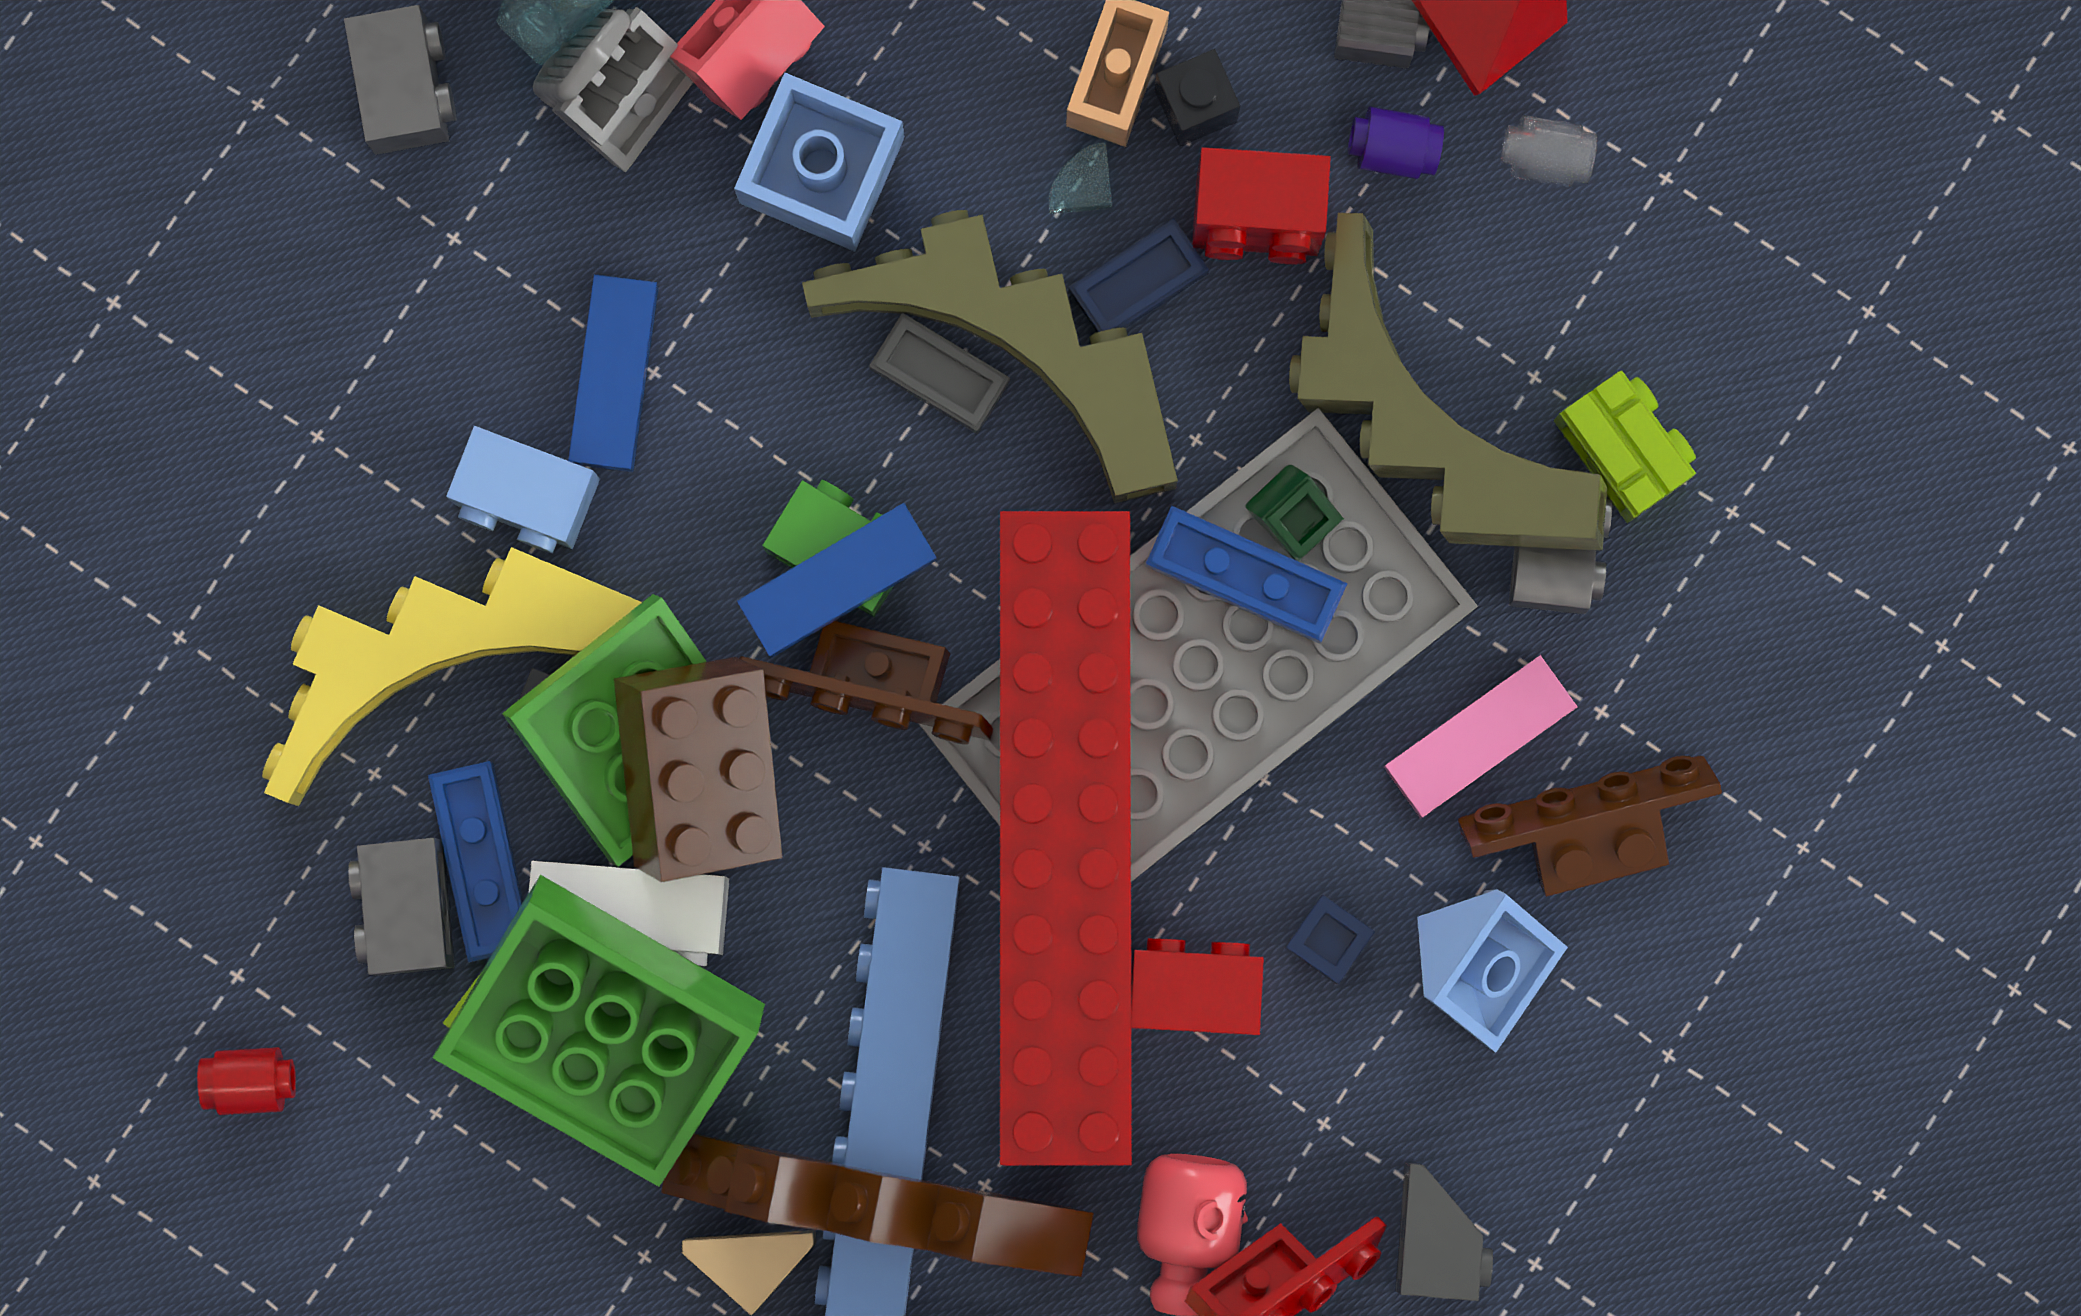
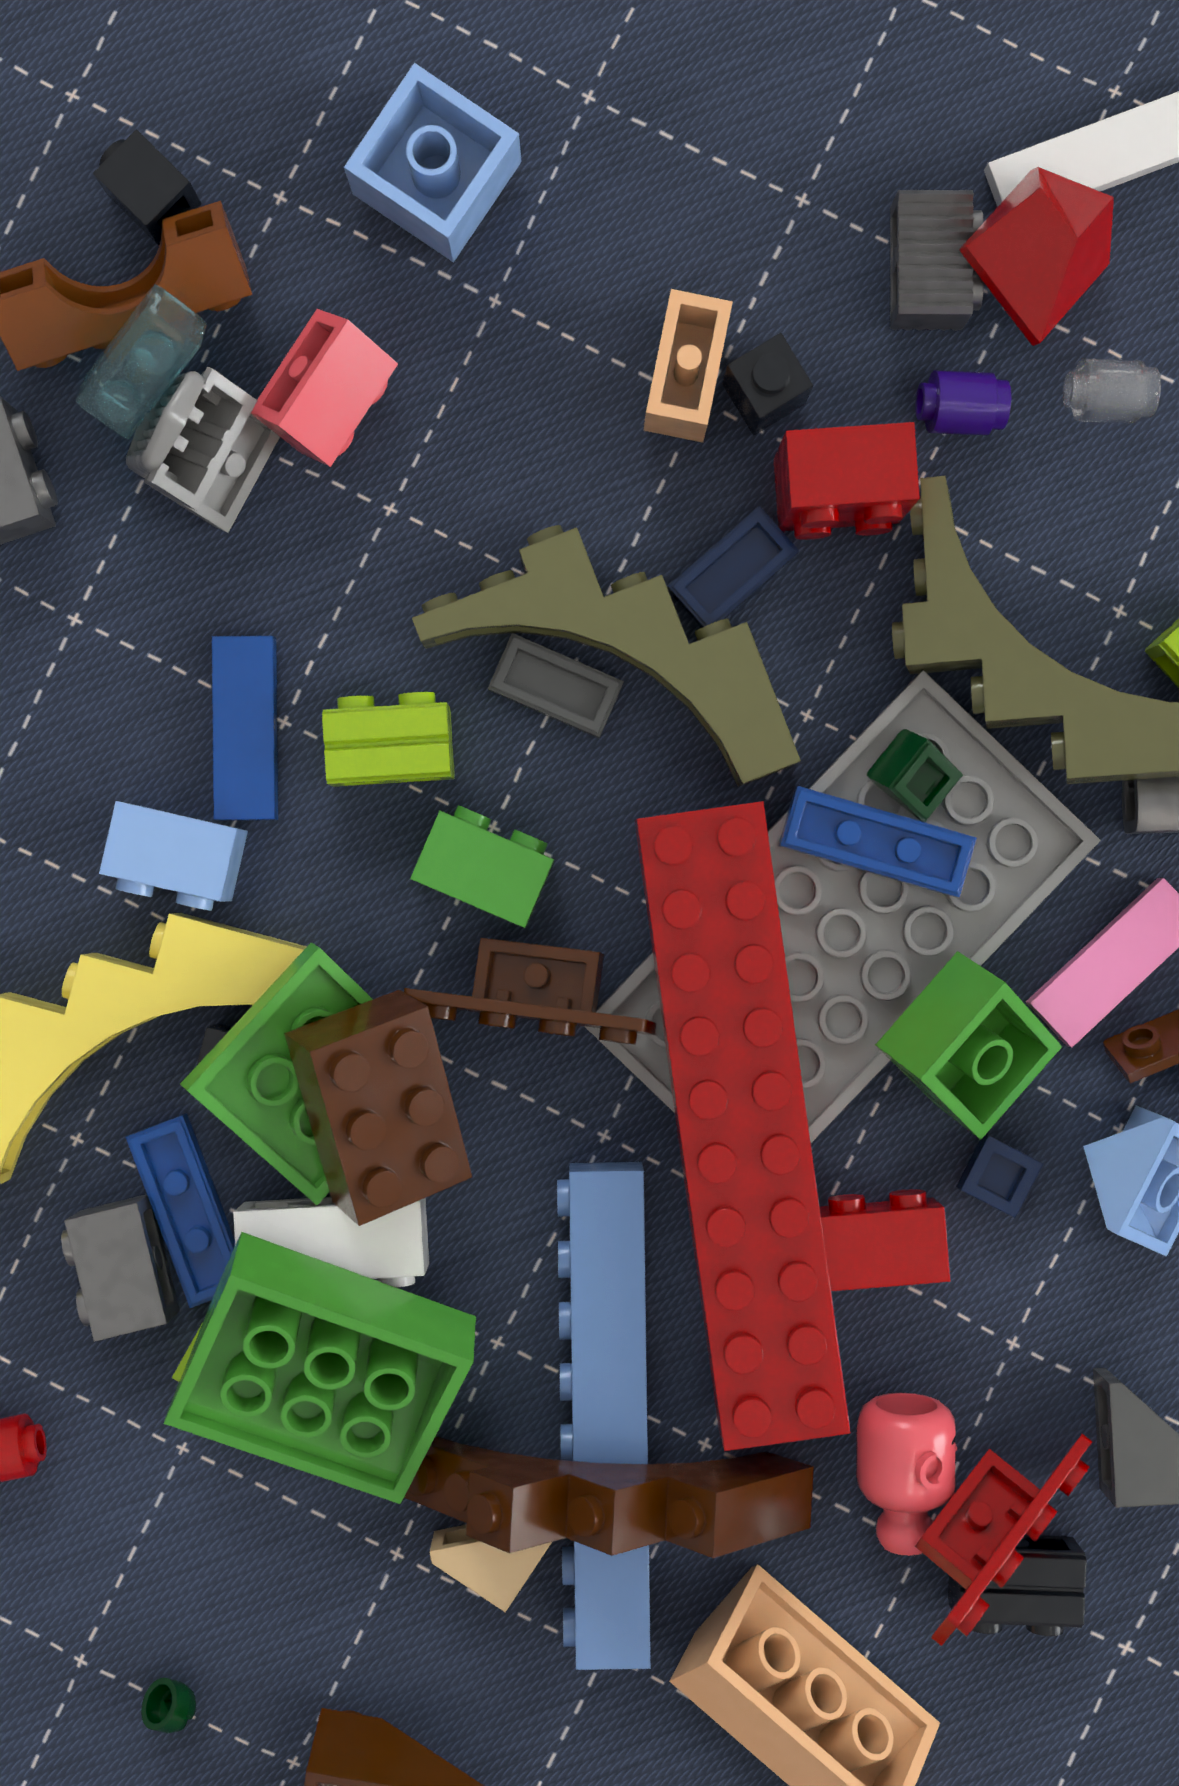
camera: 10 degrees left, 5 degrees up
(759, 405) = (388, 742): none -> lime brick
(819, 162) = (411, 496): light blue brick -> none
(837, 580) = (486, 904): blue tile -> none
(1082, 182) = (667, 483): clear light blue tile -> none
(1310, 792) = (969, 1044): none -> bright green brick

